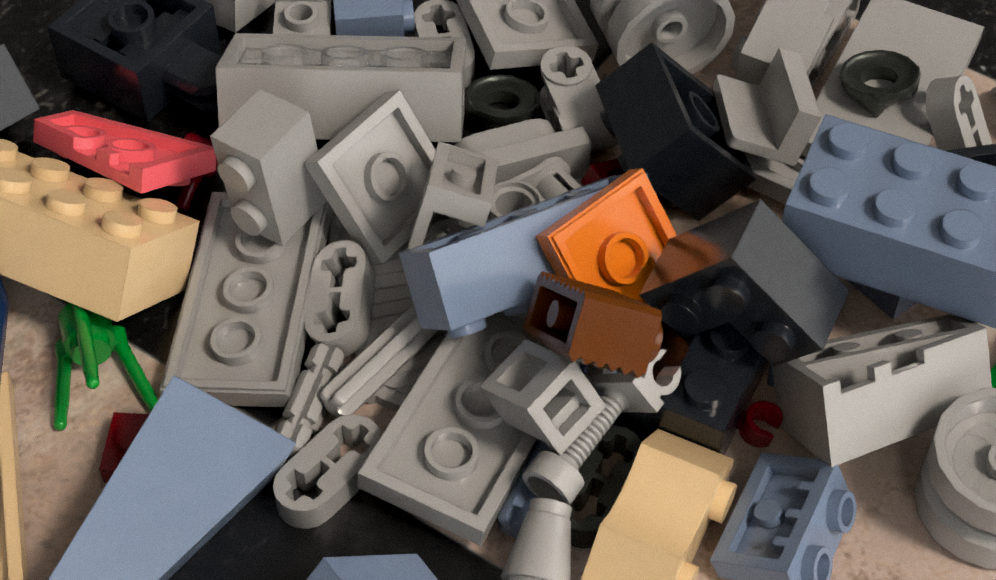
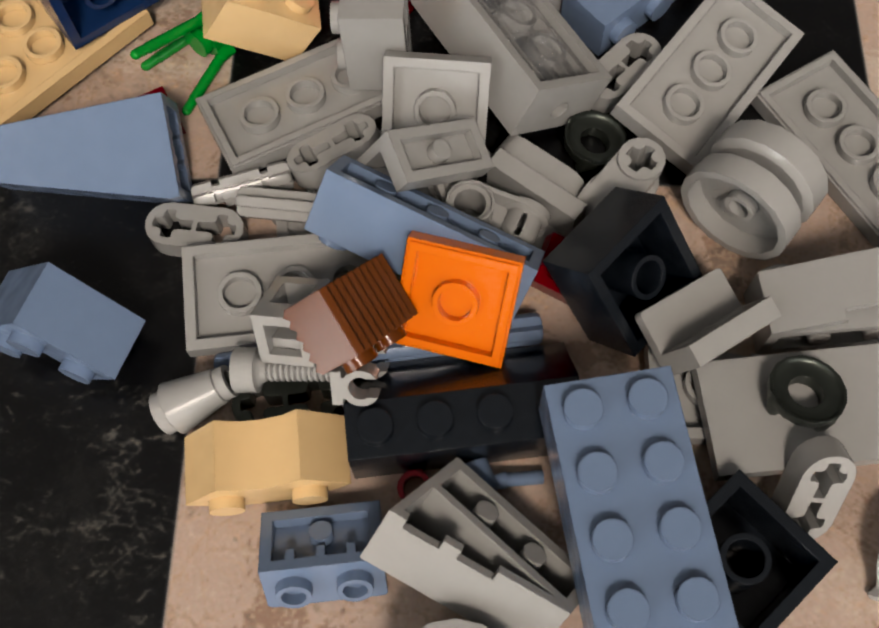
camera: 60 degrees right, 15 degrees up
(748, 274) = (466, 390): black brick -> none

